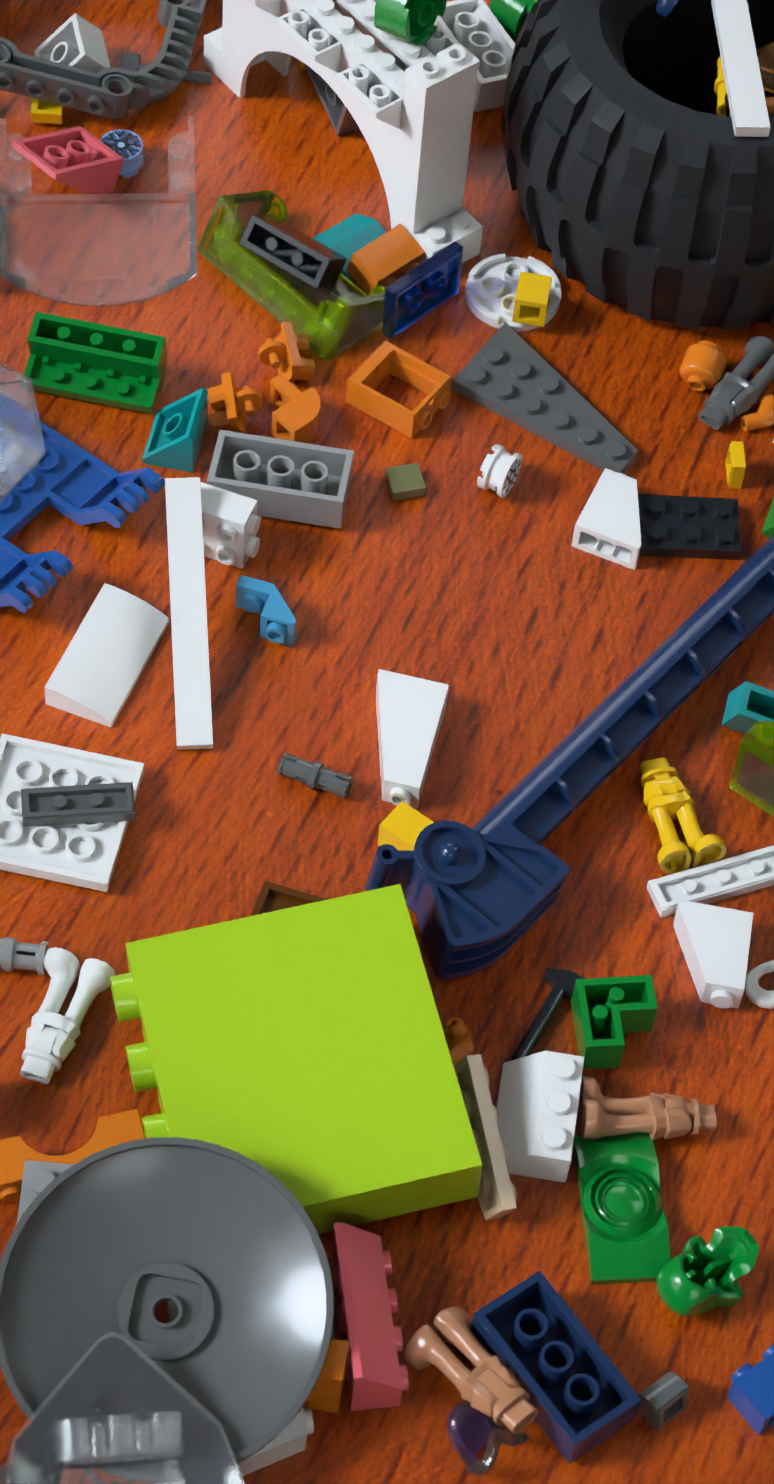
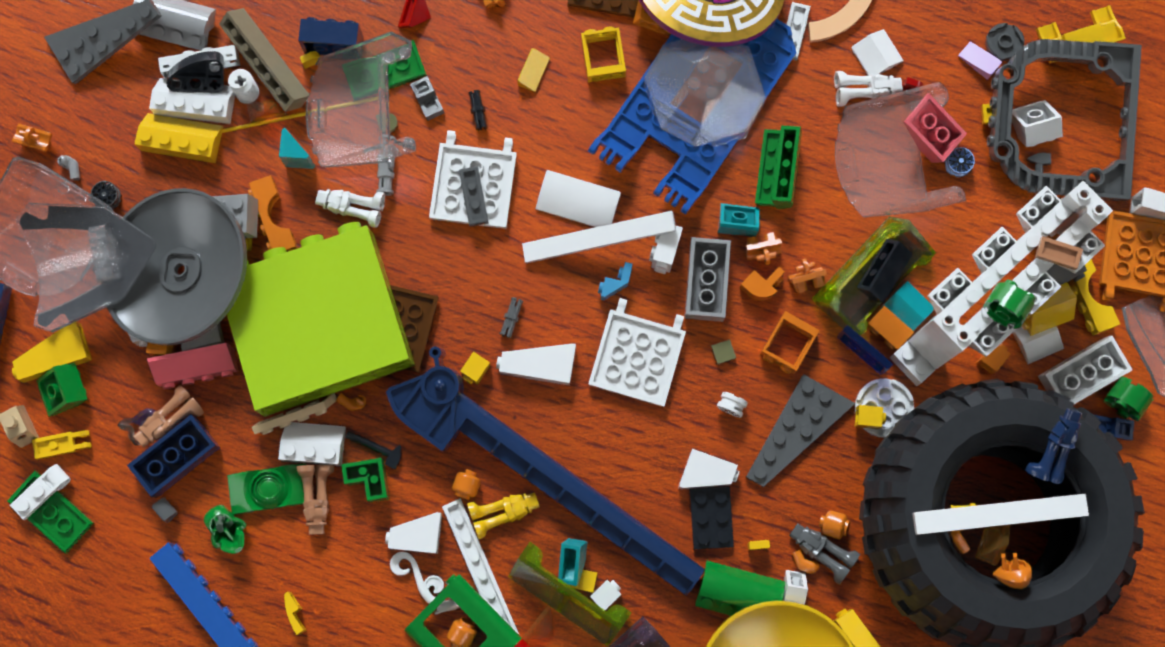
camera: 90 degrees right, 25 degrees up
(402, 595) = (637, 356): none -> white plate
(623, 867) = (466, 484): none -> orange head

